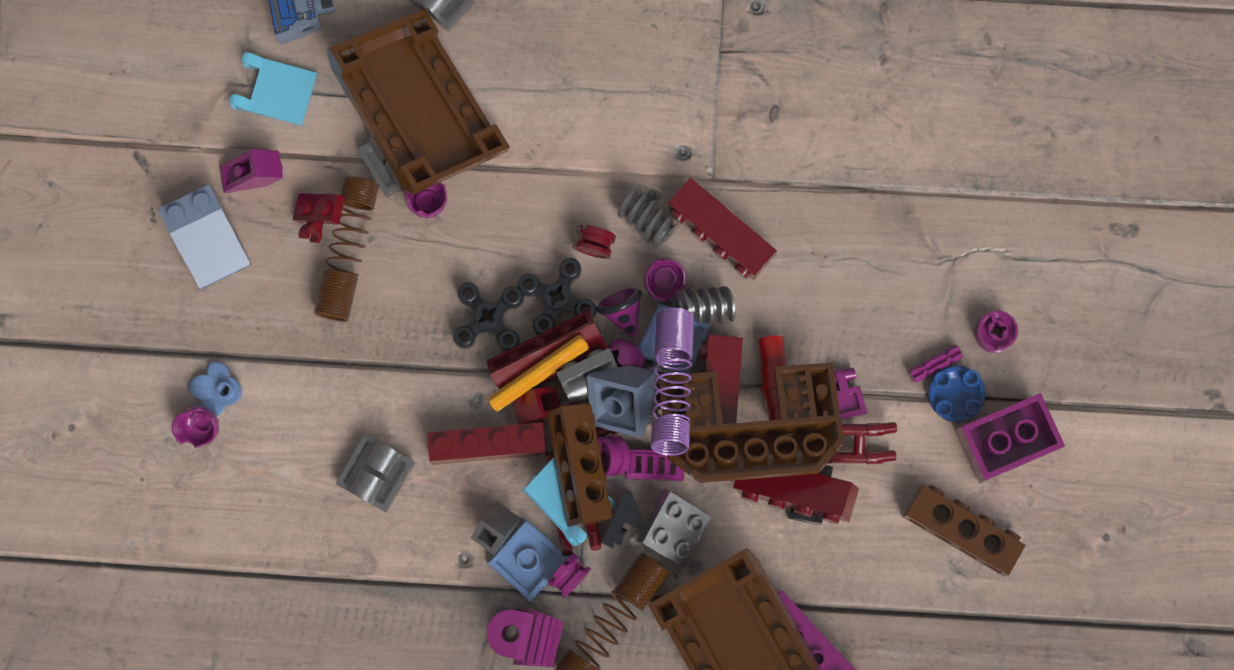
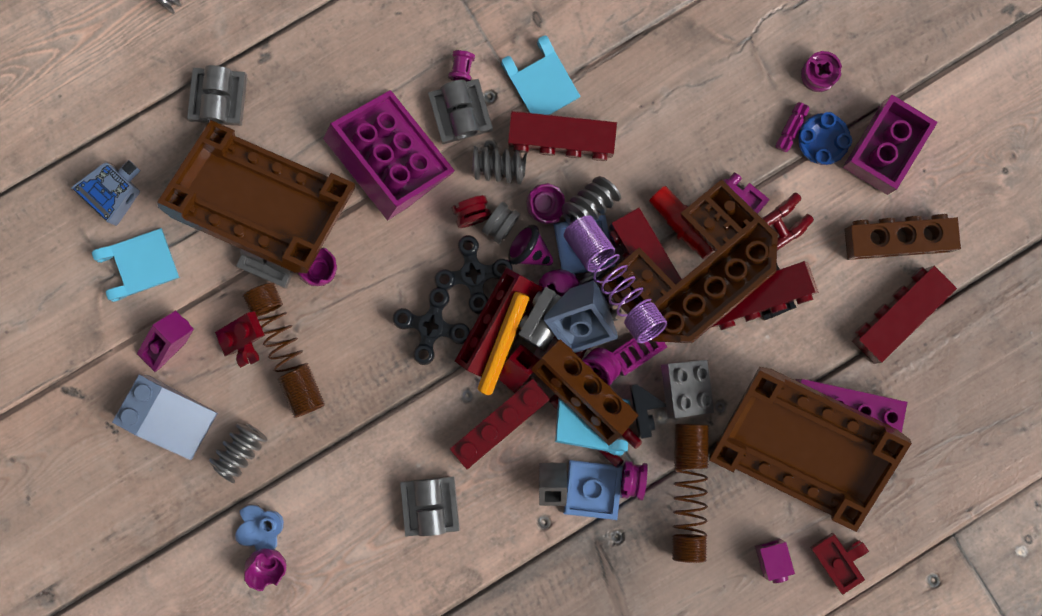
camera: 40 degrees left, 5 degrees up
(245, 308) = (238, 451): none -> flat silver piece
(536, 641) = (645, 550): magenta piece -> none
(557, 142) = (387, 154): none -> magenta slope
(612, 268) = (500, 222): none -> flat silver wheel
(647, 147) = (460, 110): none -> flat silver plate
(676, 109) = (461, 65): none -> magenta bush
(739, 174) = (543, 84): none -> medium azure flag
(917, 599) = (904, 314): none -> dark red brick

